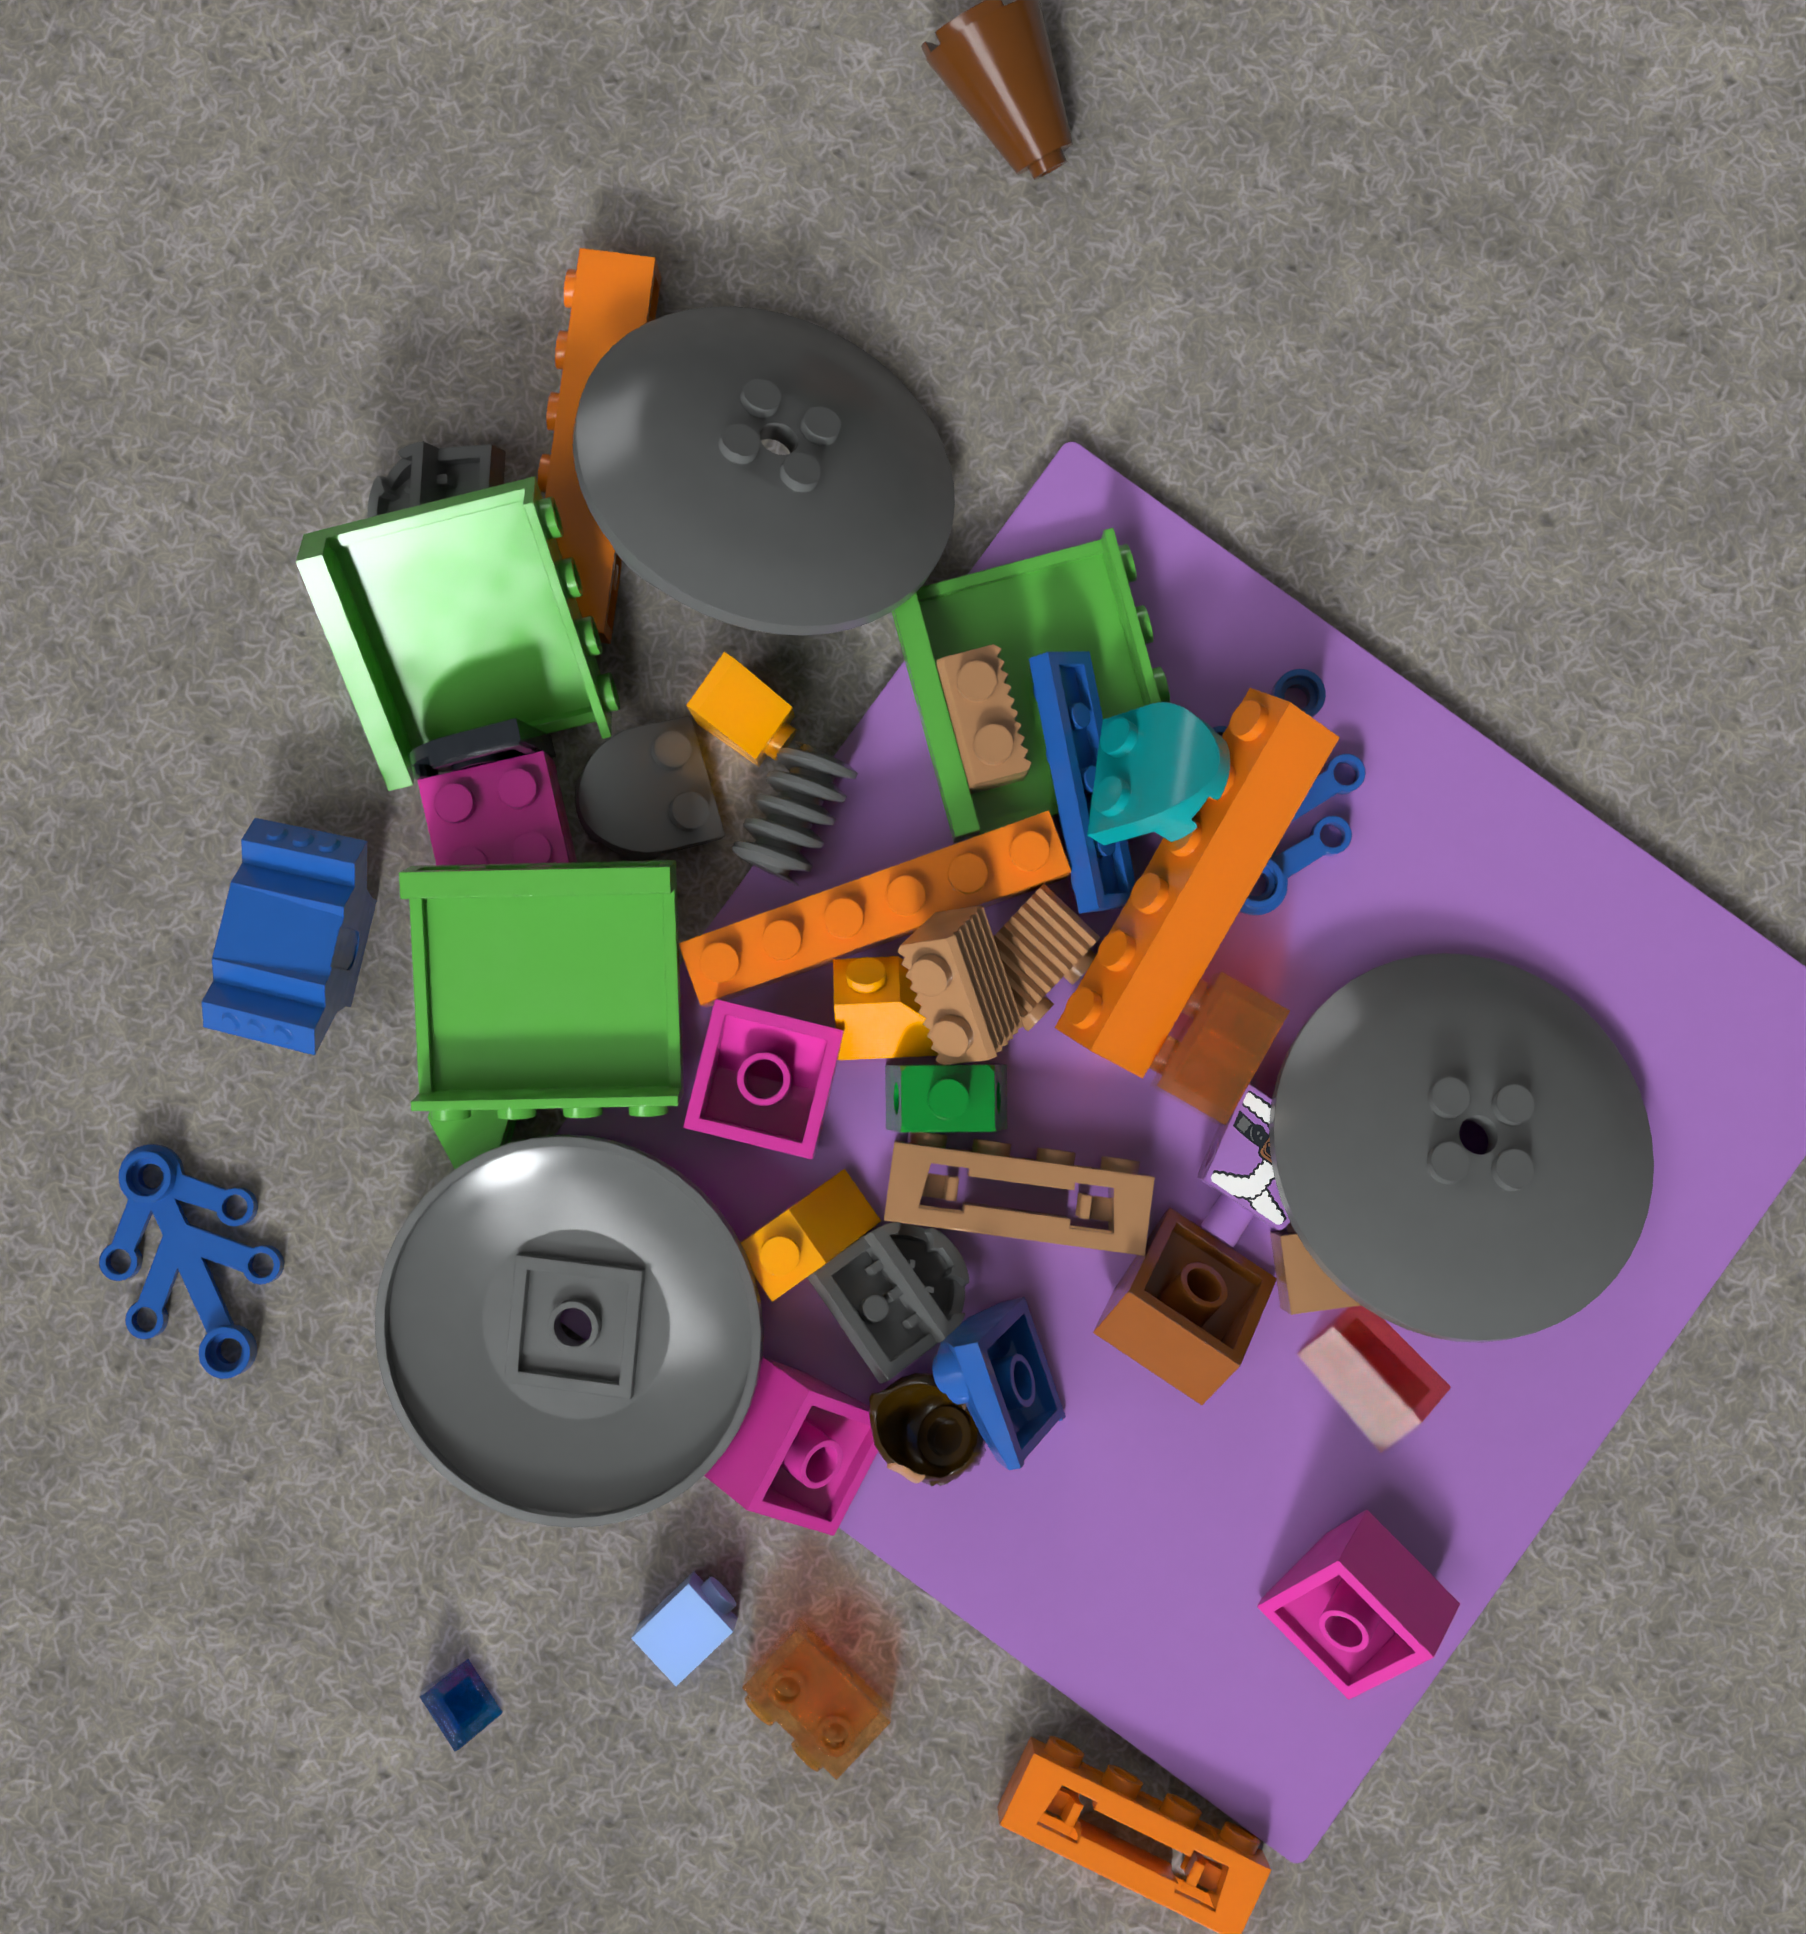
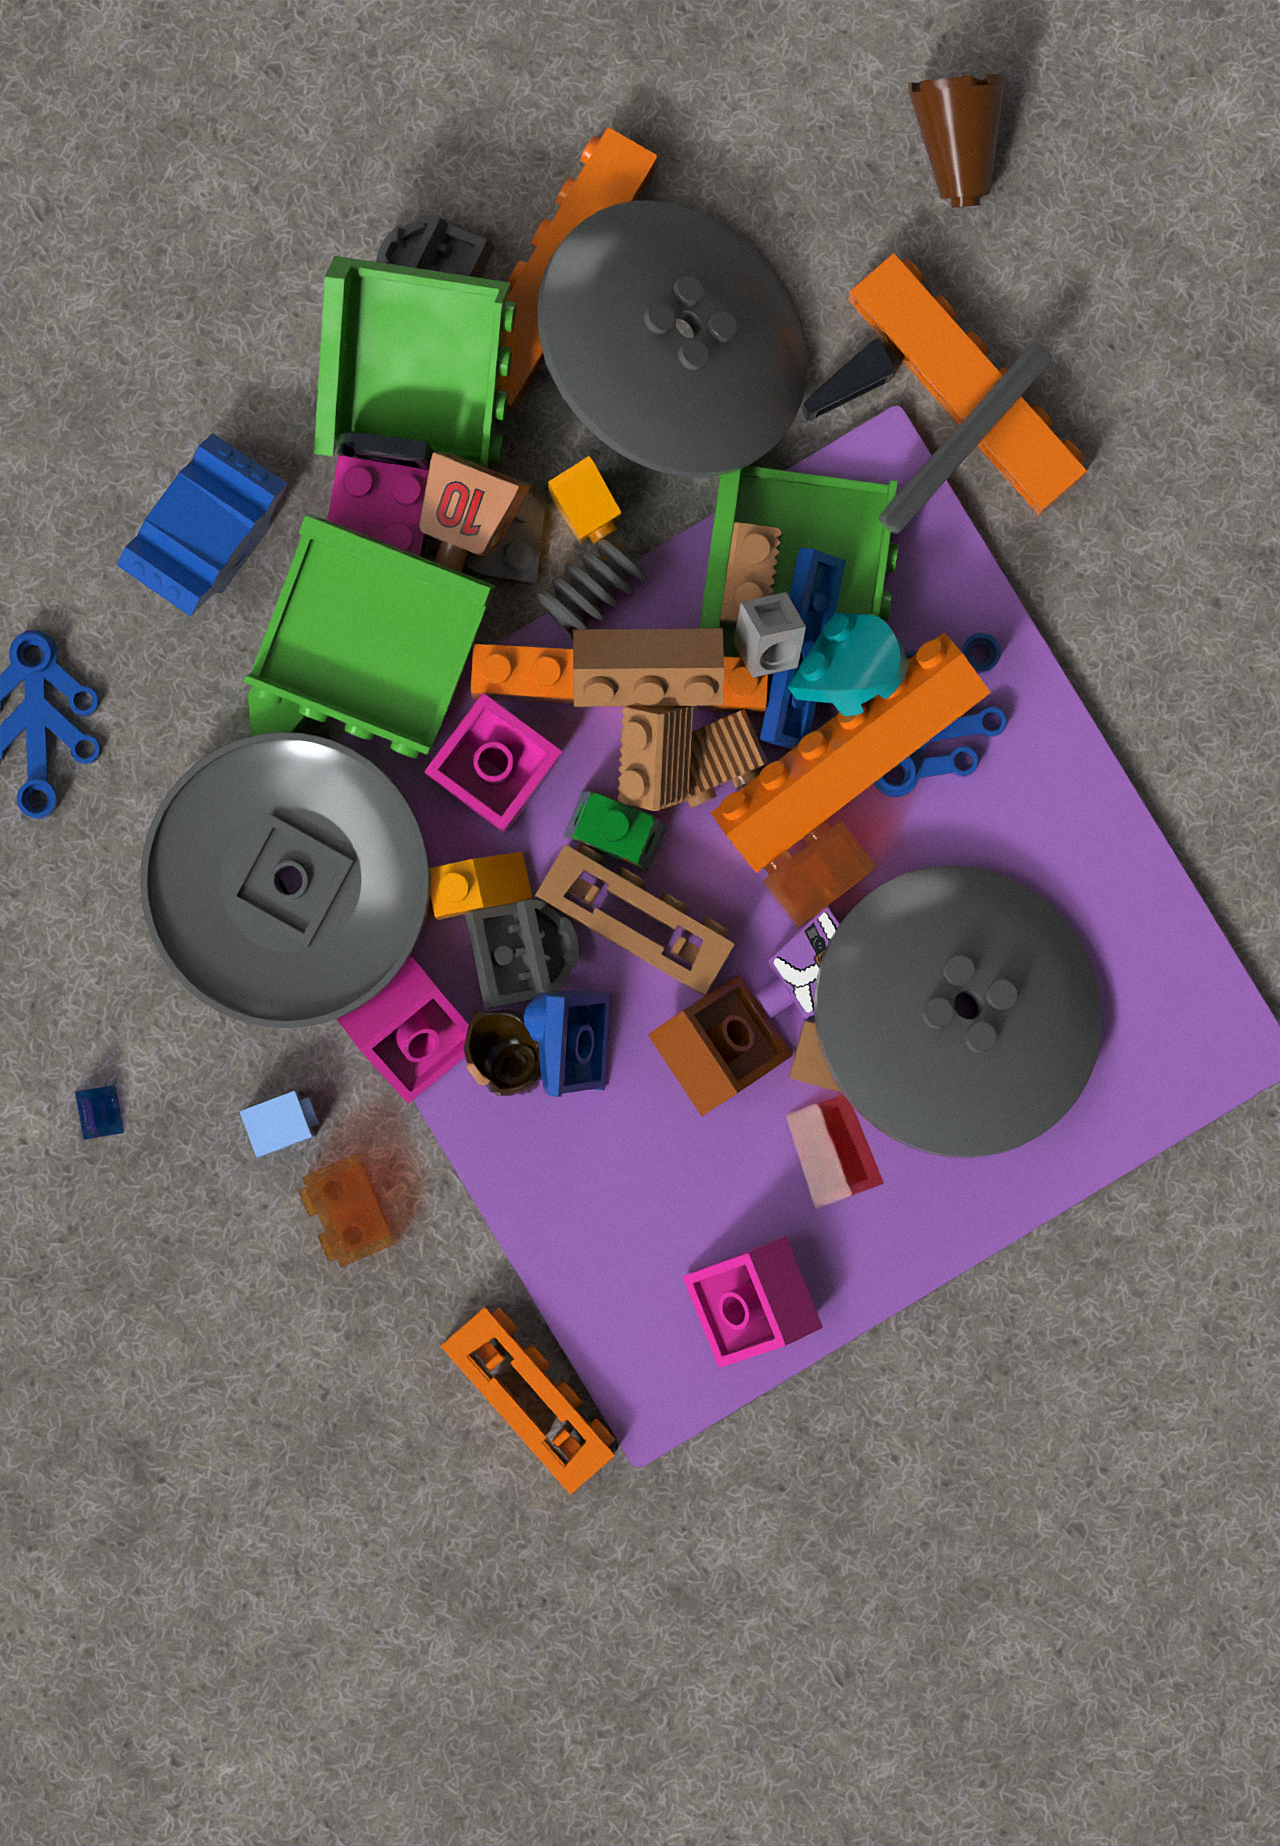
camera: 20 degrees right, 0 degrees up
(601, 778) = (468, 507): none -> nougat torso
(878, 1010) = (591, 749): light orange slope -> none
(909, 883) = (648, 667): none -> medium nougat brick
(1009, 424) = (857, 377): none -> black slope
(1040, 779) = (769, 634): none -> light grey brick
(1142, 378) = (960, 376): none -> orange brick
(1173, 442) = (965, 438): none -> dark grey axle

